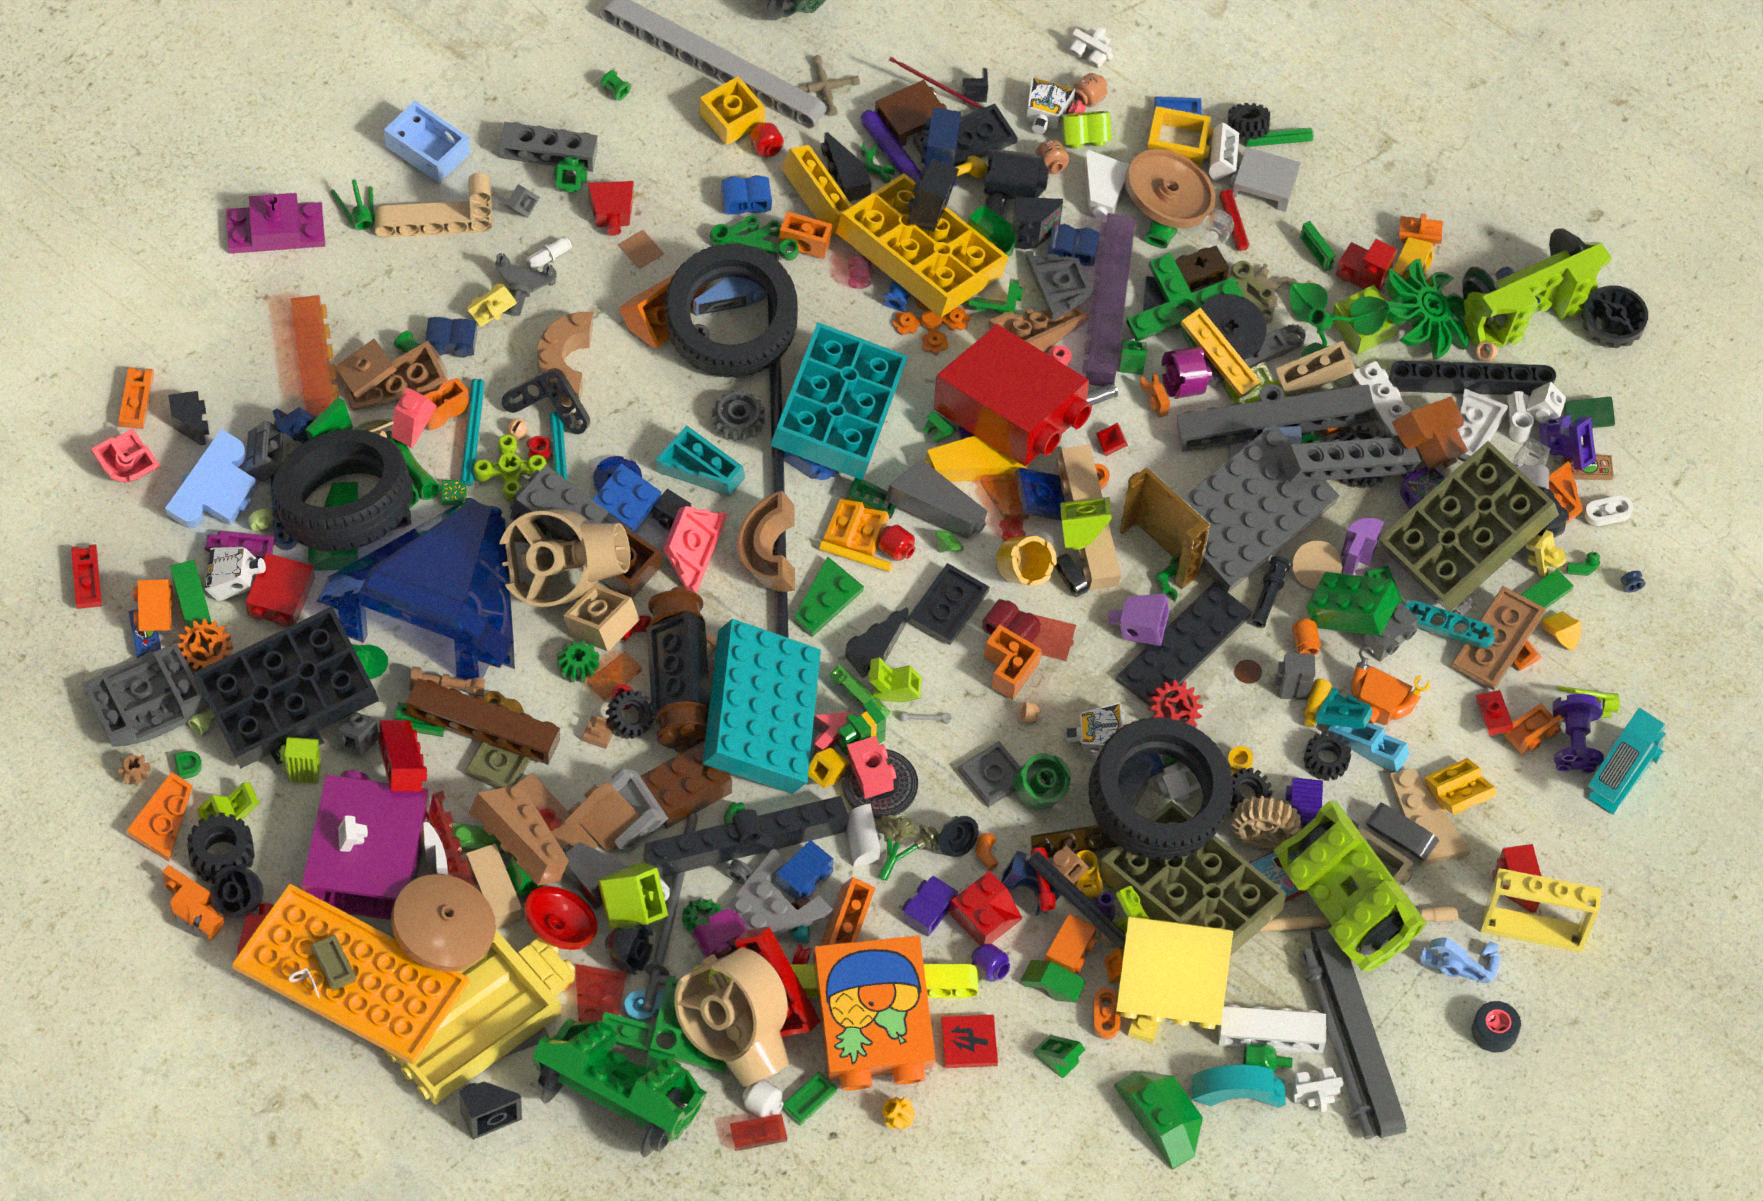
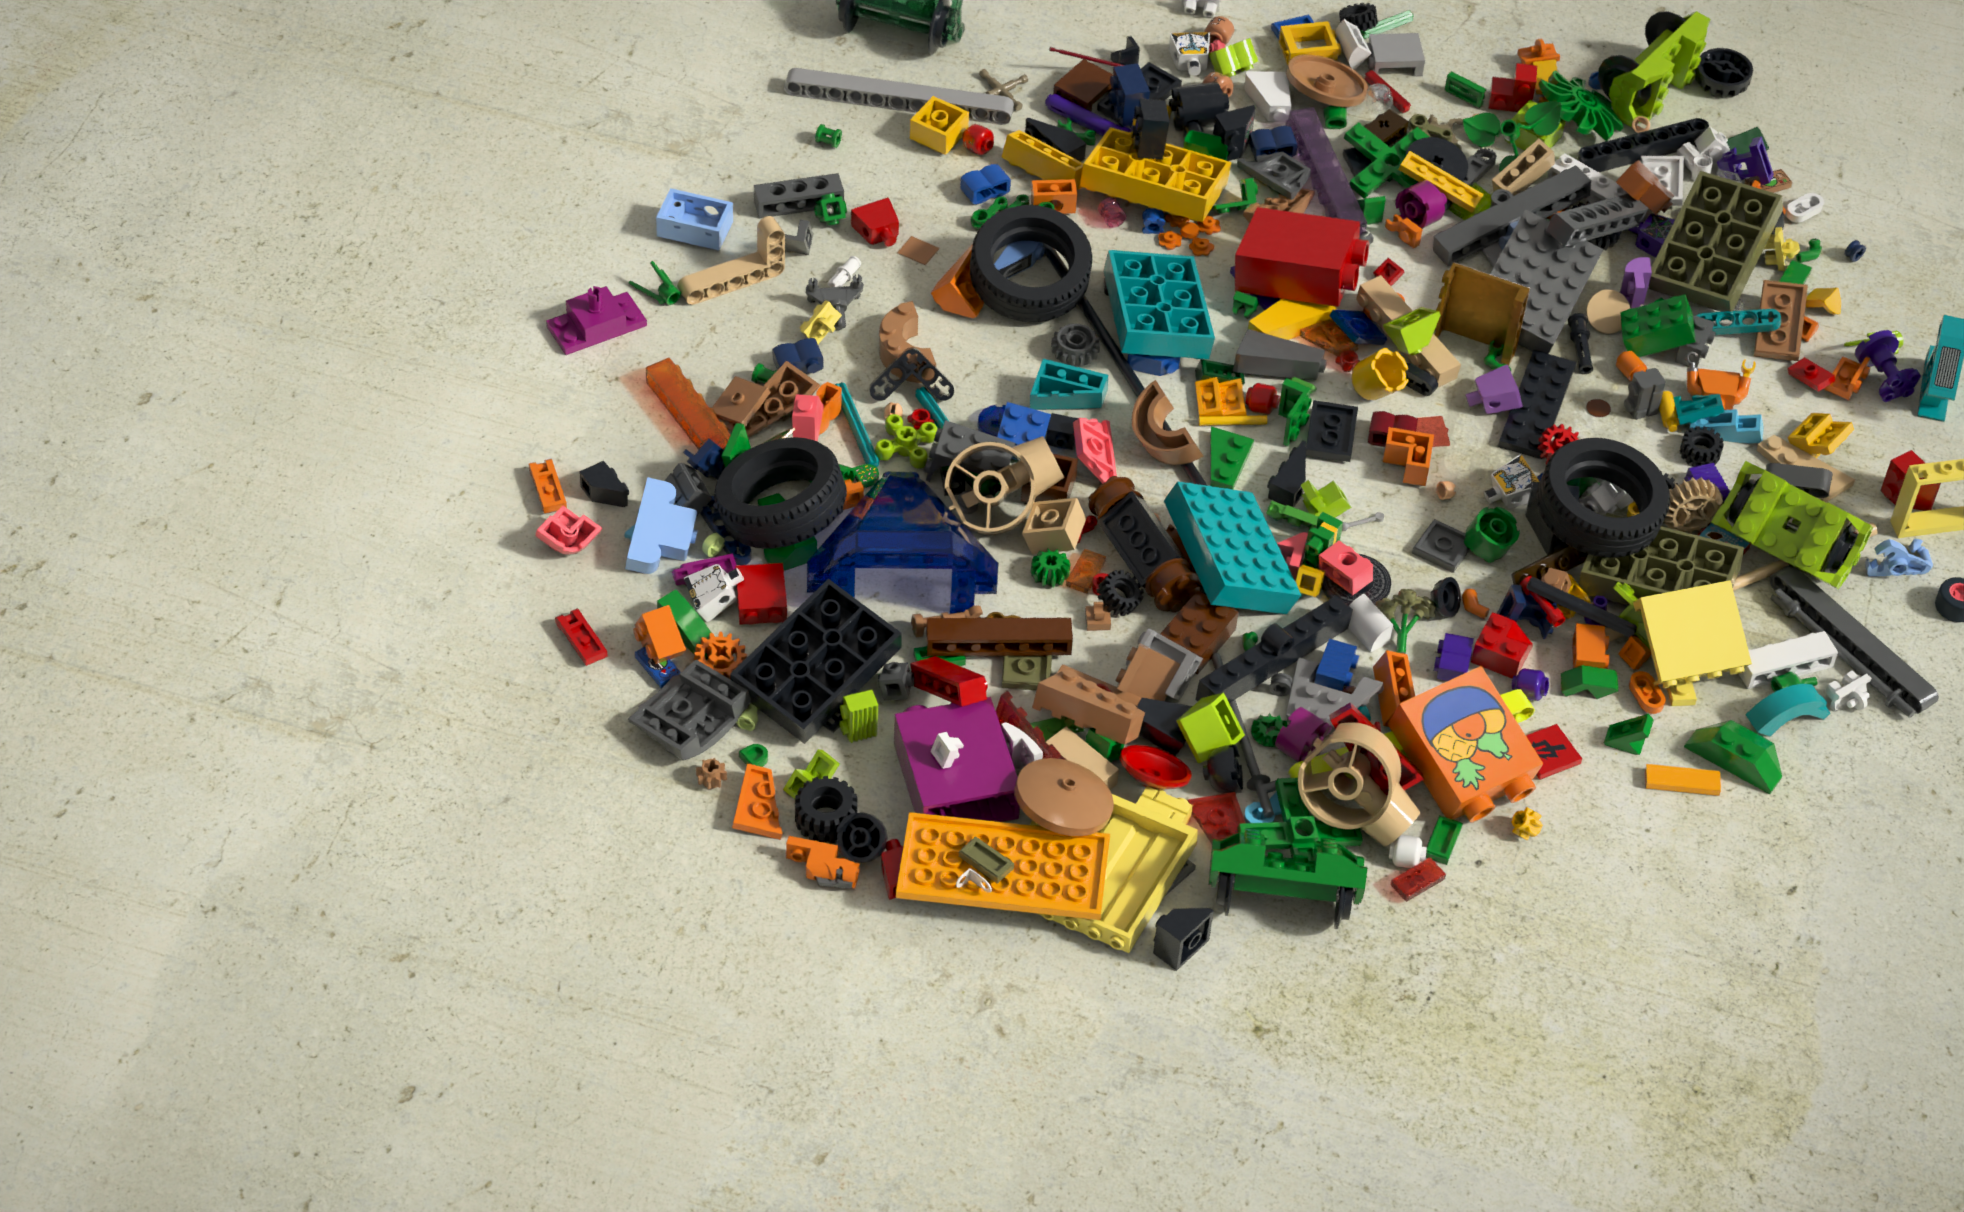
camera: 20 degrees left, 10 degrees down
(423, 509) = (854, 492): none -> orange tile
(921, 571) = (1294, 405): none -> green bracket
(1089, 1121) = (1682, 779): none -> light orange tile

